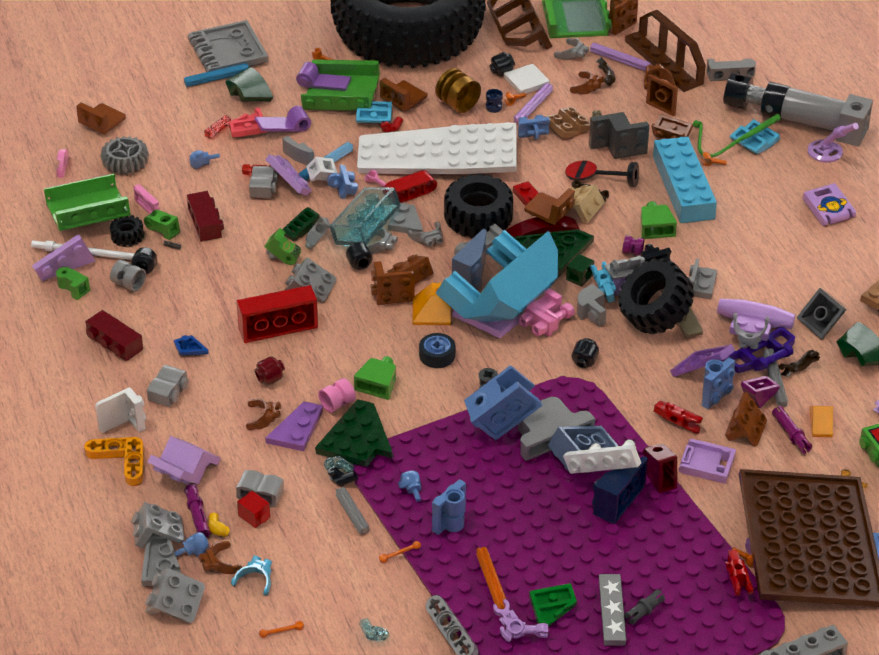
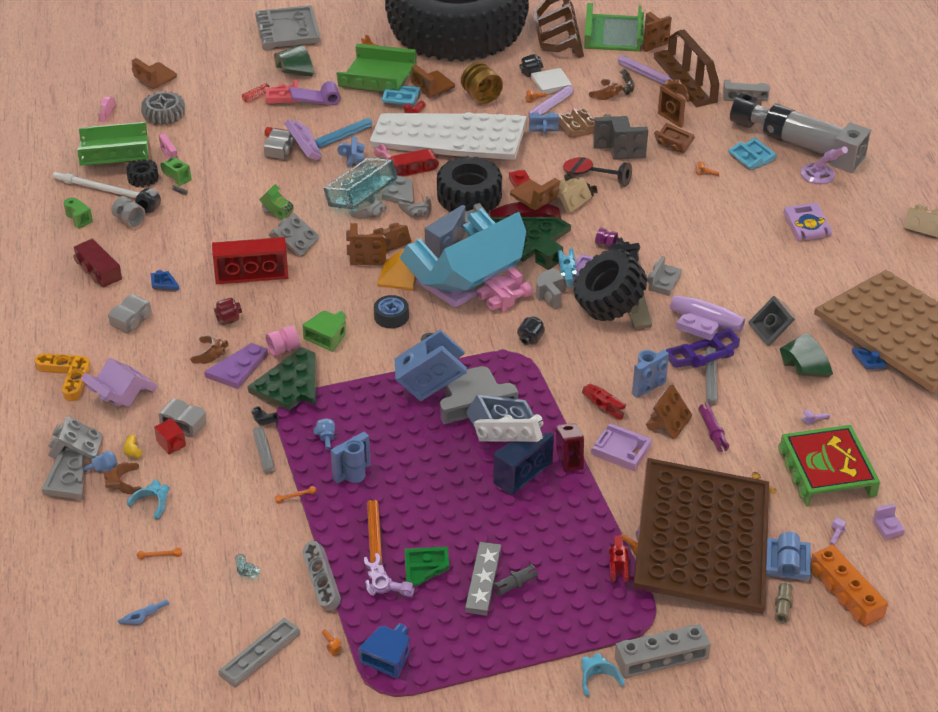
camera: 10 degrees right, 0 degrees up
(71, 255) = (83, 187): lavender wing -> none
(120, 409) = (75, 329): white bracket -> none
(175, 595) = (67, 507): light grey bracket -> none
(195, 505) = (117, 425): magenta pin -> none
(200, 158) = (230, 118): medium blue piece -> none
(205, 216) = (216, 167): dark red brick -> none
(214, 75) = (266, 49): dark azure axle -> none
(298, 152) = (320, 121): light grey slope -> none
(306, 215) = (307, 182): dark green slope -> none
(310, 78) = (352, 59): medium lavender door -> none
(317, 232) = (313, 193): light grey helmet -> none
(321, 168) = (334, 136): white brick -> none
(338, 462) = (264, 403): clear light blue arm -> none
(359, 255) = (343, 217): black head -> none
(494, 100) = (514, 96): dark blue wheel -> none
(578, 51) = (605, 61): light grey helmet -> none
(623, 267) = (584, 254): light grey hinge -> none
(657, 221) = (635, 219): bright green torso -> none
(684, 180) = (672, 184): medium azure brick -> none
(700, 358) = (632, 352): medium lavender wing -> none
(748, 339) = (690, 335): light grey helmet -> none
(757, 129) = (764, 142): bright green piece -> none
(760, 389) = (690, 385): magenta slope -> none
(809, 357) = (741, 366): dark brown arm -> none
(821, 421) = (745, 423): light orange slope -> none

